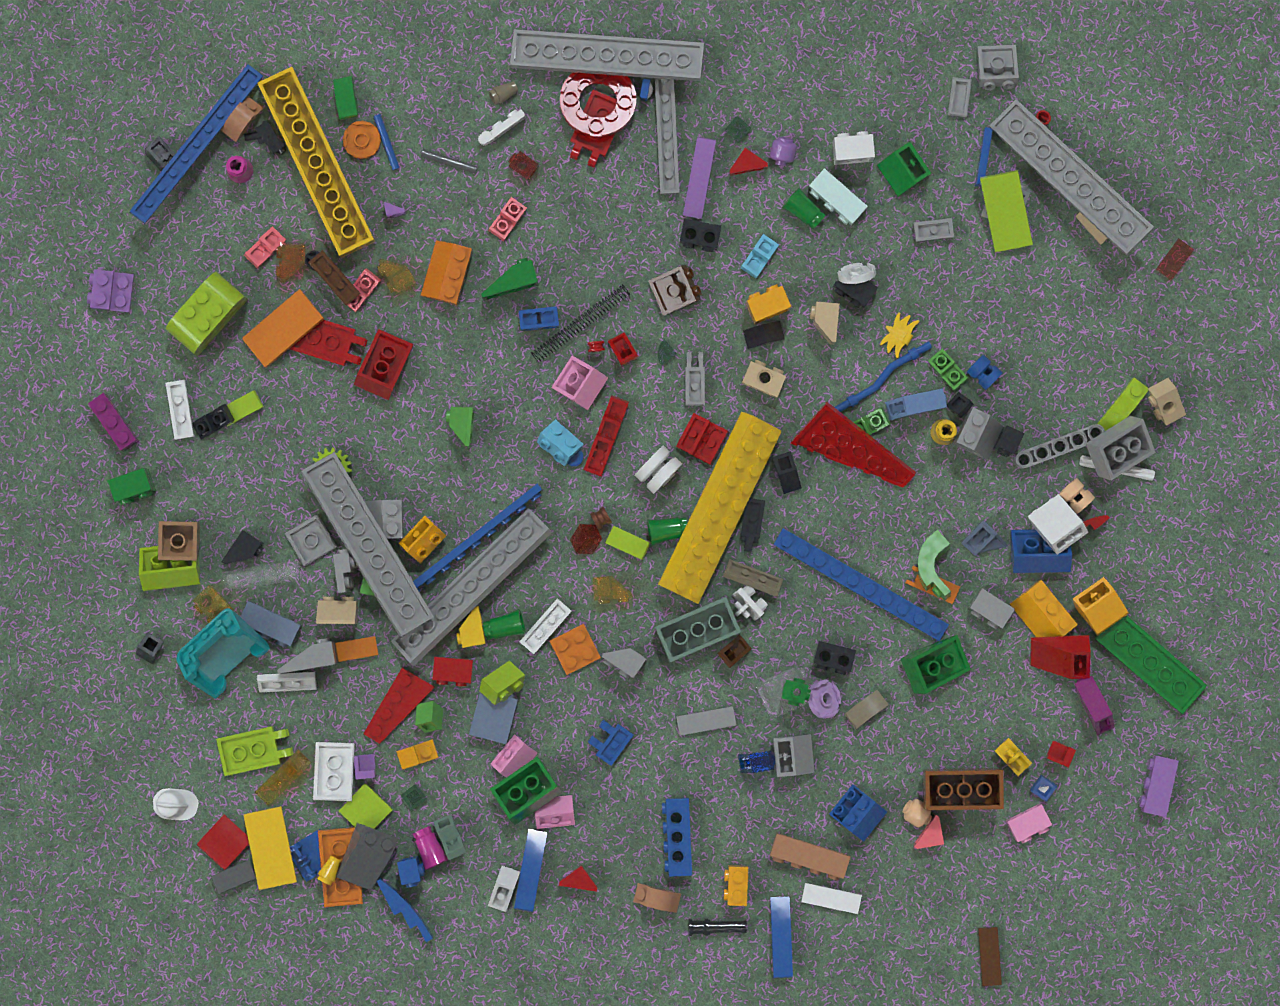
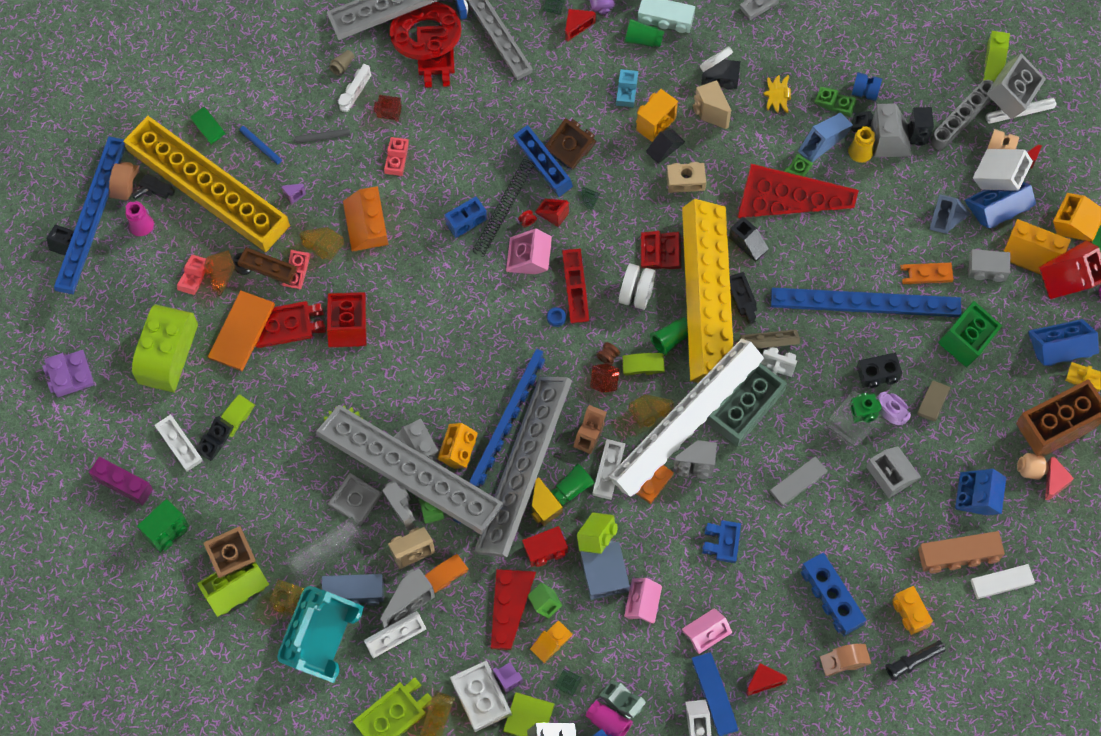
camera: 25 degrees left, 20 degrees down
(149, 647) = (248, 667): black brick -> none
(243, 548) = (295, 535): black slope -> none
(362, 145) = (243, 154): orange tile -> none
(461, 422) = (442, 332): bright green slope -> none
(516, 278) = (428, 195): green slope -> none
(526, 790) = (671, 619): green brick -> none
(546, 584) = (590, 429): none -> nougat brick
(559, 442) = (537, 310): medium azure bracket -> none
(633, 620) = (686, 417): none -> white brick
(639, 297) = (543, 160): none -> blue brick
(695, 382) = (628, 207): light grey hinge -> none
(699, 177) = (543, 50): medium lavender slope -> none
(701, 230) = (566, 88): black brick -> none
(734, 651) = (788, 410): reddish brown slope -> none
(756, 761) = (864, 490): clear blue slope -> none
(781, 937) = (980, 638): blue slope -> none
(912, 354) = (798, 104): blue bar -> none
(929, 553) = (915, 257): bright green arch -> none
(1015, 713) = (1064, 342): none -> blue slope
(1166, 402) = (1029, 37): tan brick -> none

